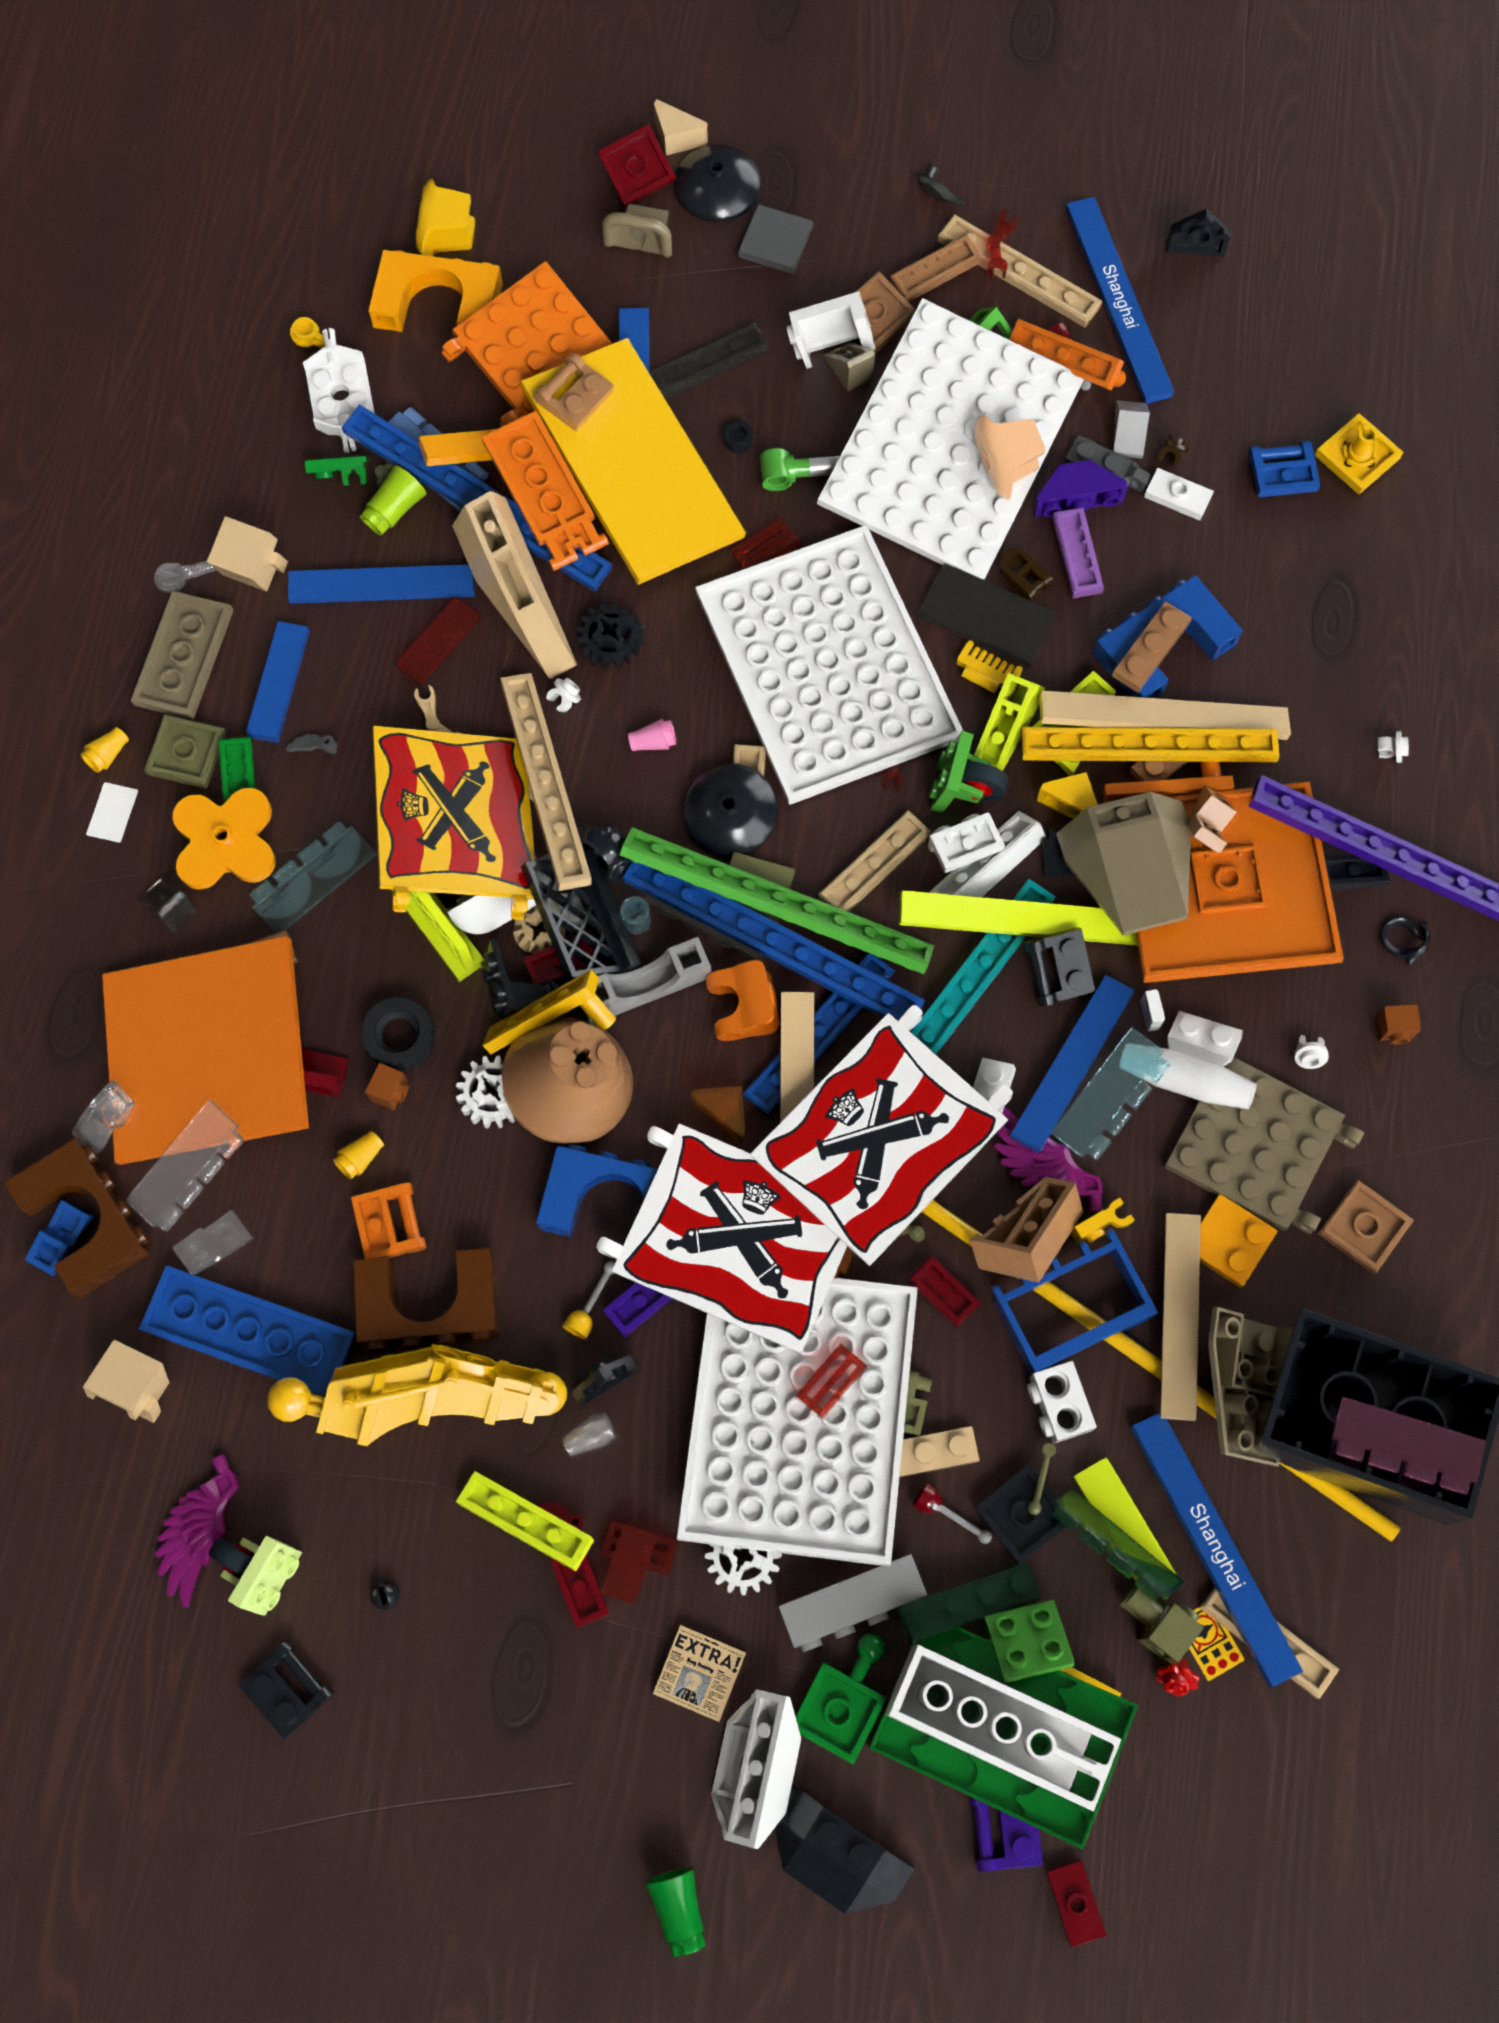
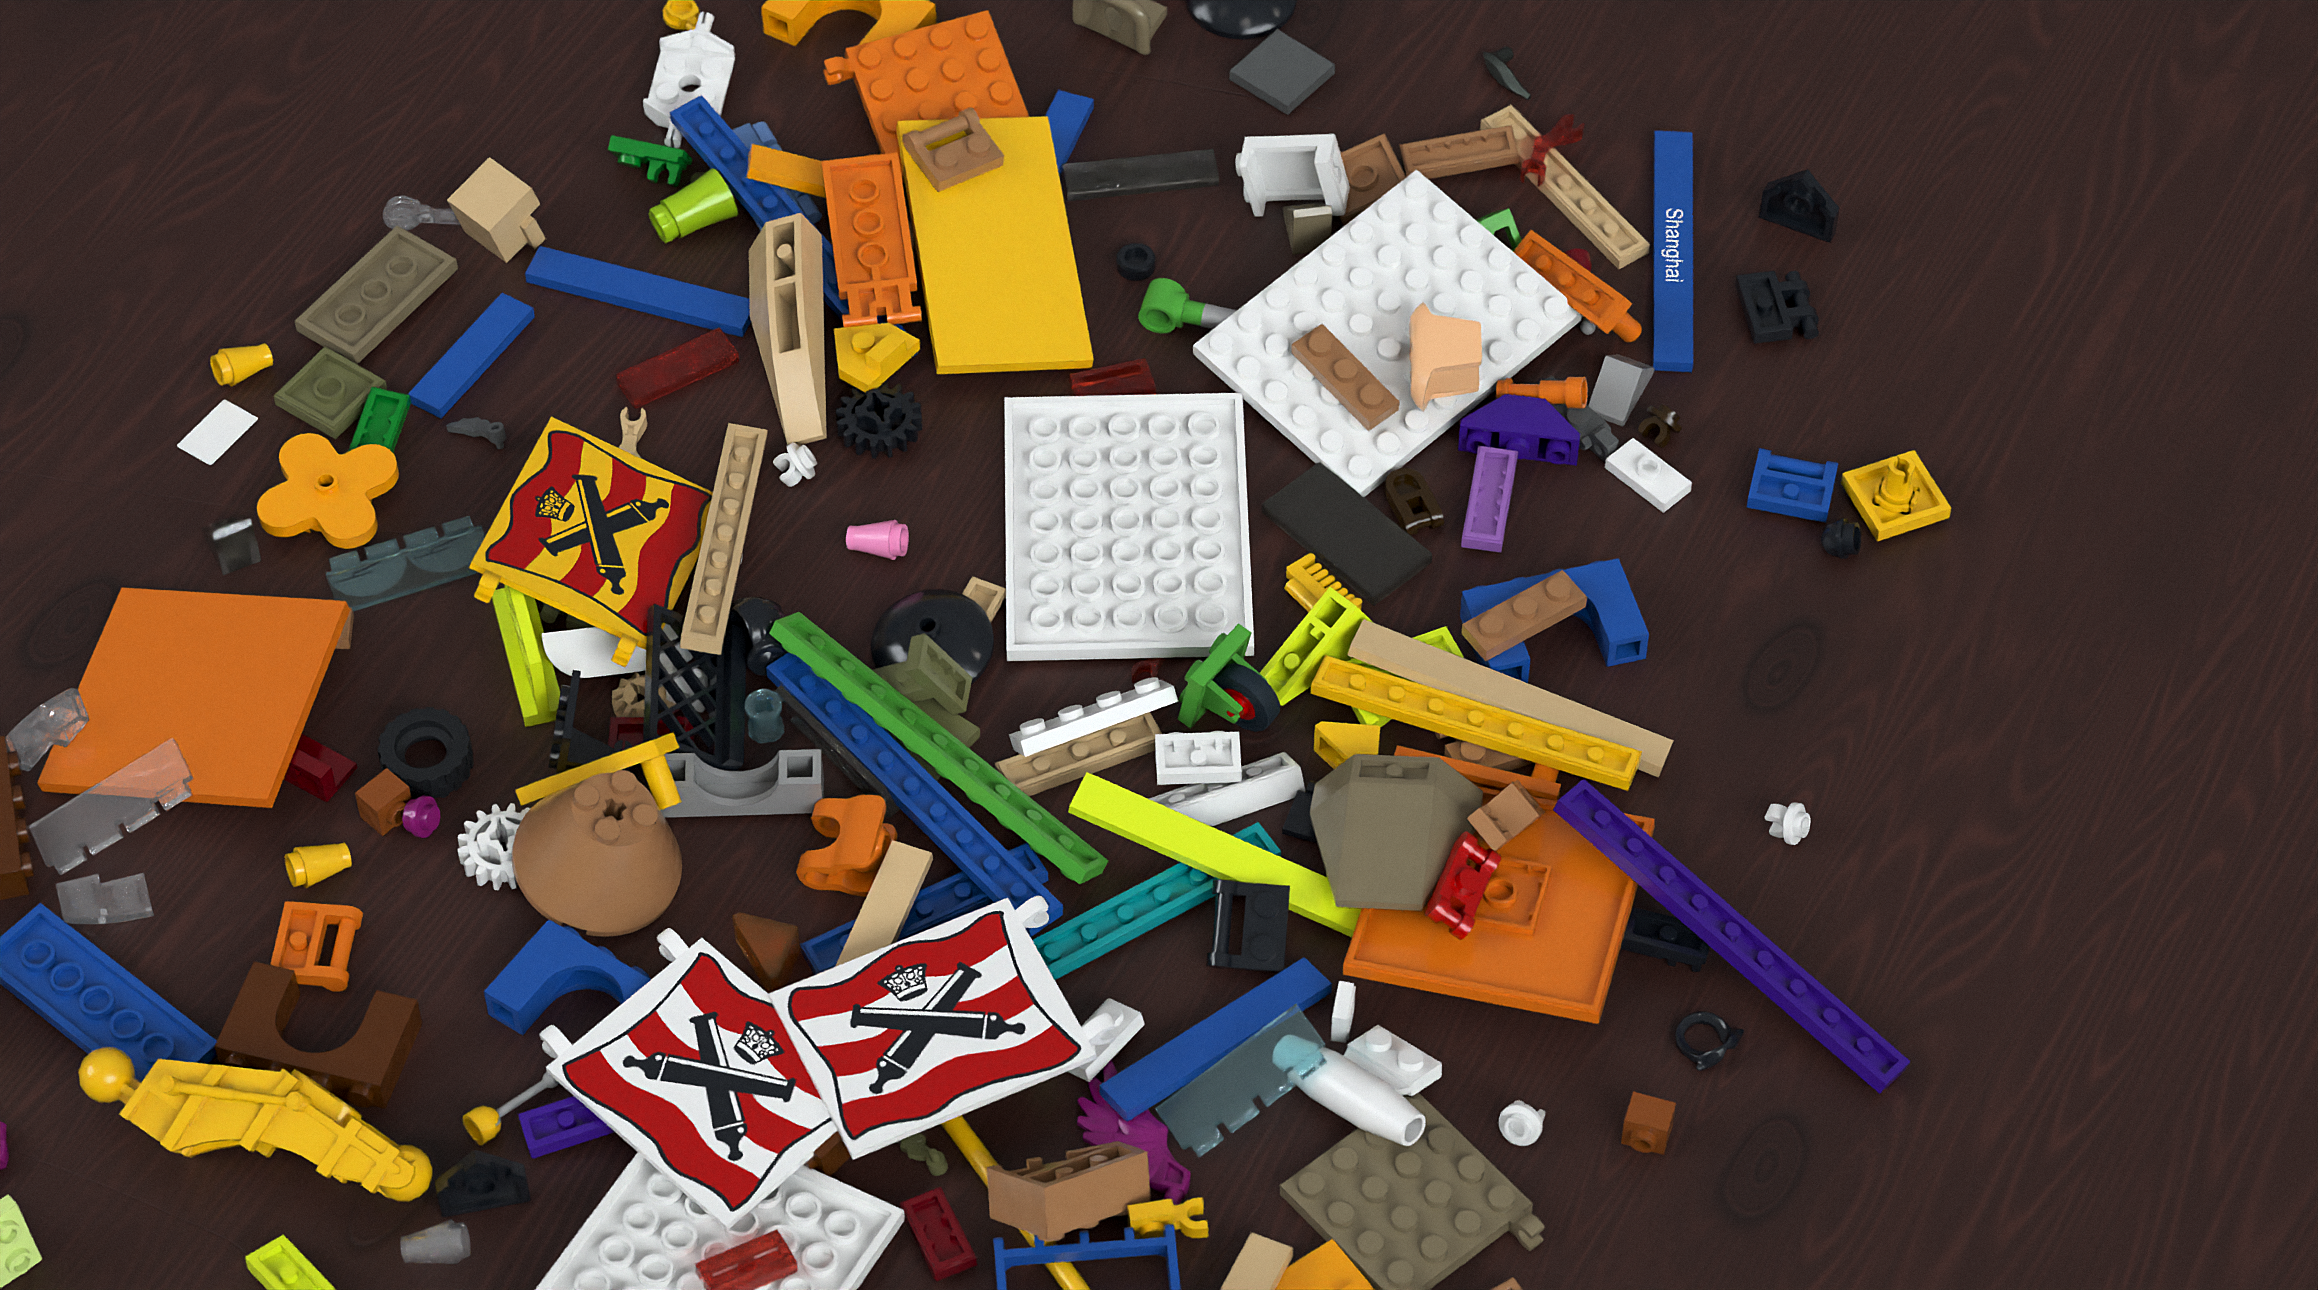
camera: 20 degrees right, 20 degrees down
(419, 1088) = (421, 816): none -> magenta plate
(583, 584) = (872, 353): none -> yellow plate
(744, 847) = (929, 675): none -> olive bracket
(874, 832) = (1079, 721): none -> white plate
(941, 490) = (1345, 377): none -> medium nougat plate
(1091, 451) = (1570, 392): none -> orange piece
(1206, 328) = (1766, 310): none -> black plate
(1206, 888) = (1461, 885): none -> red plate
(1335, 502) = (1842, 538): none -> black plate

